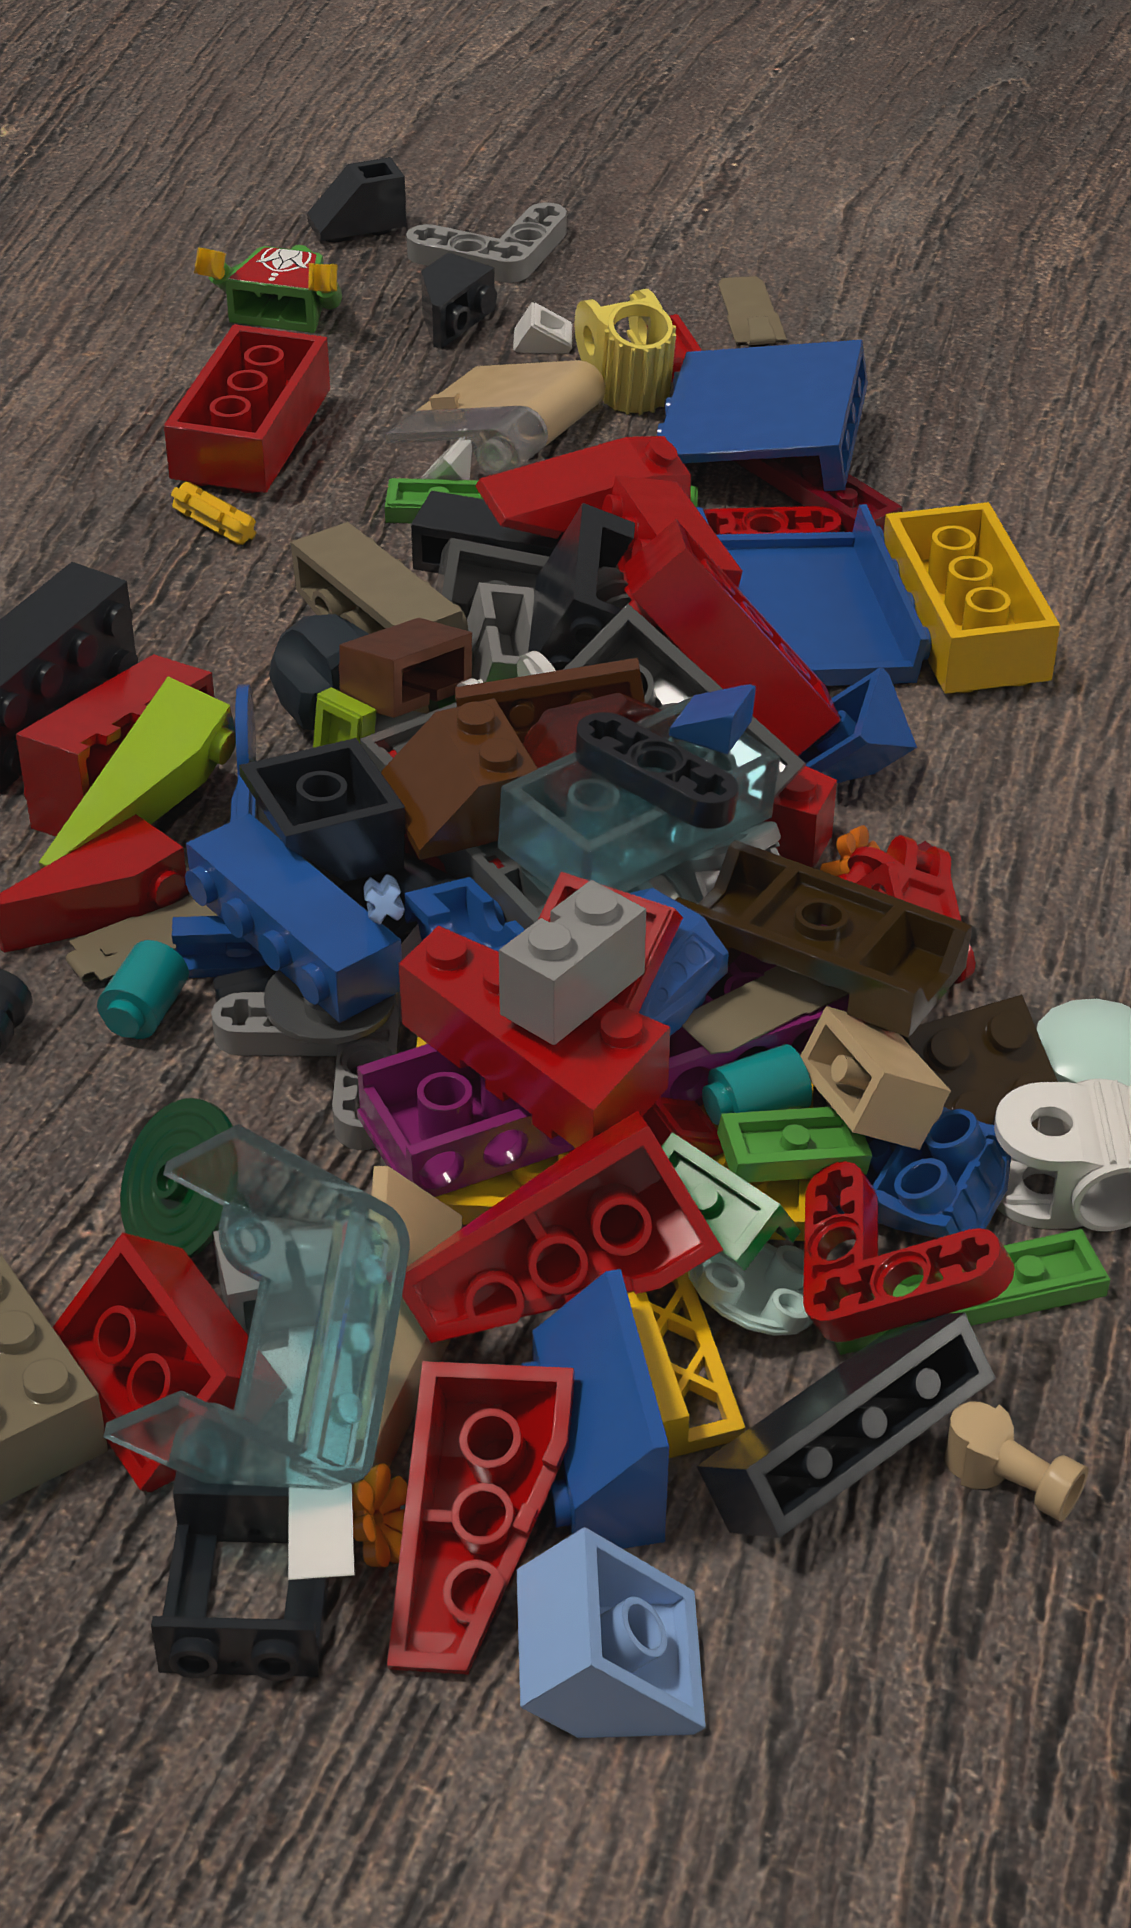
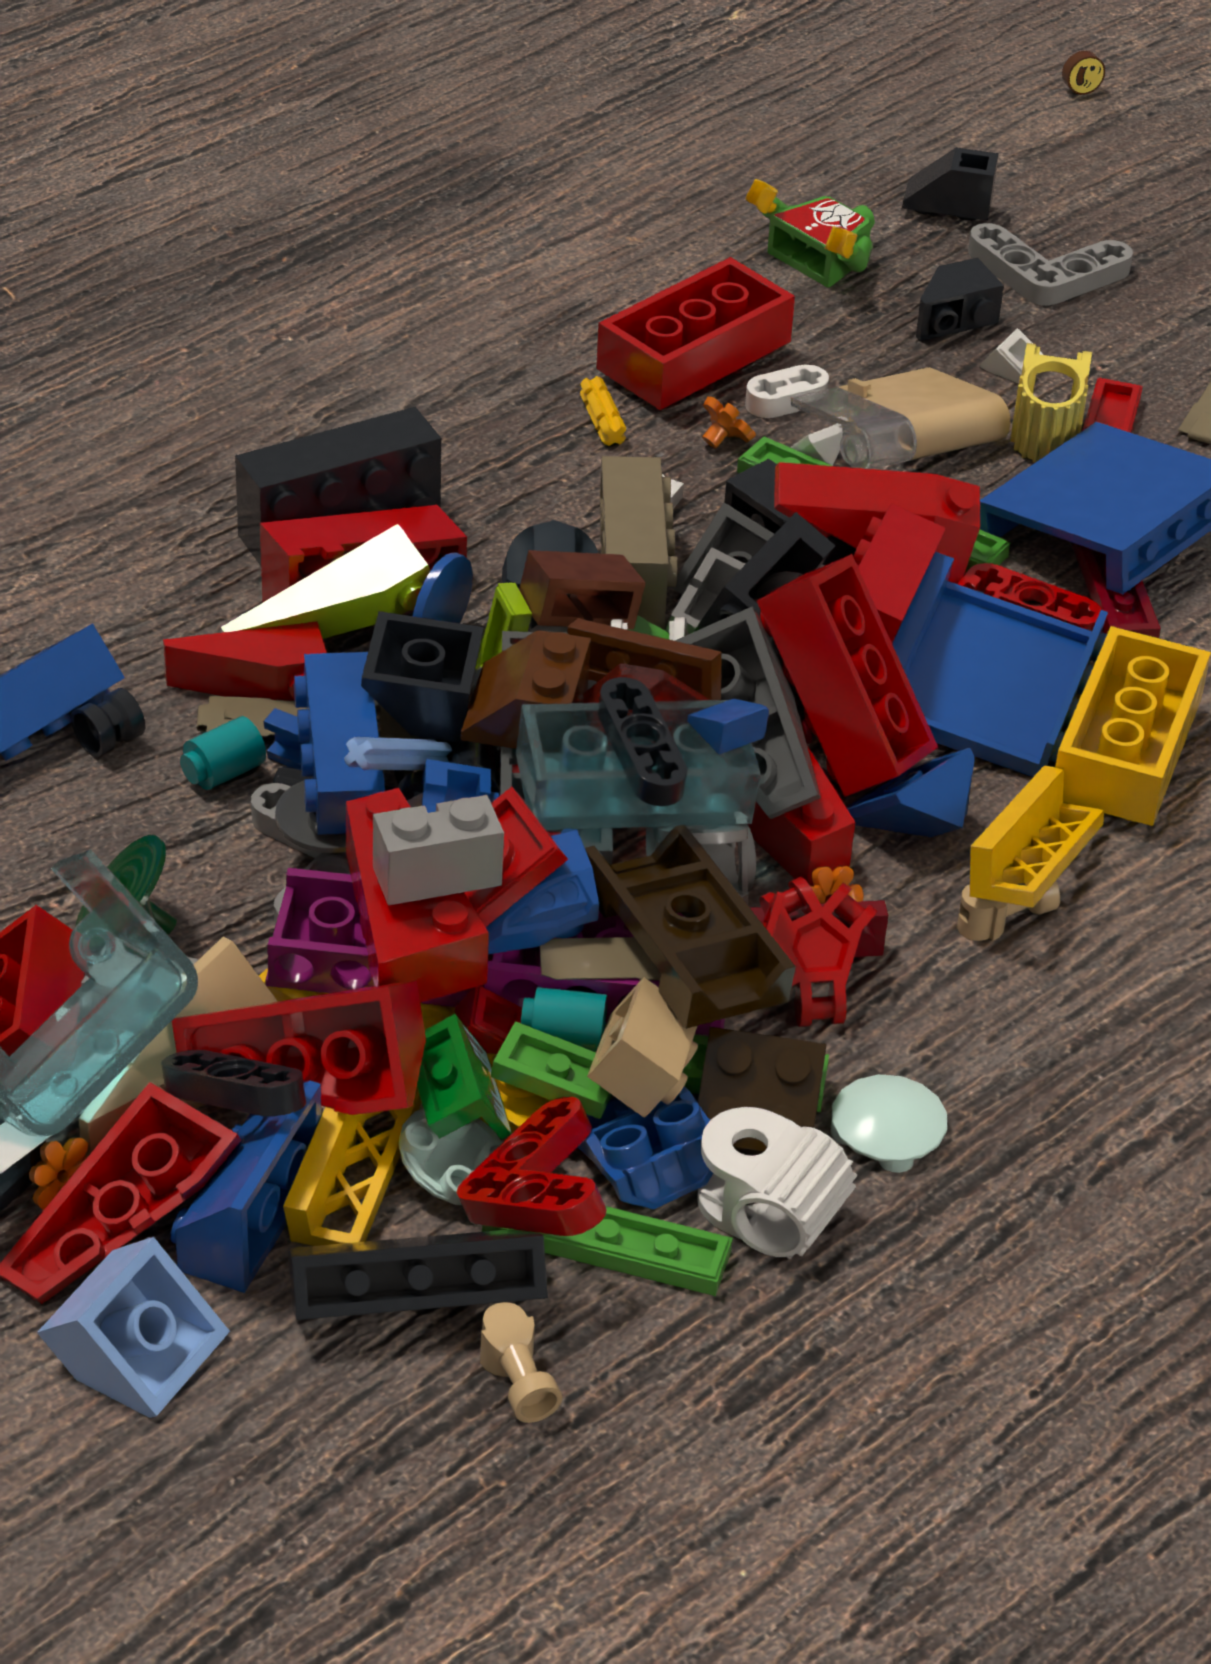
camera: 30 degrees right, 0 degrees up
(345, 478) = (725, 423): none -> orange plant
(362, 435) = (771, 392): none -> white beam
(376, 77) = (1083, 72): none -> tile
(529, 1313) = (234, 1082): none -> black beam
(989, 744) = (1030, 834): none -> yellow fence
(997, 813) = (985, 919): none -> tan leg

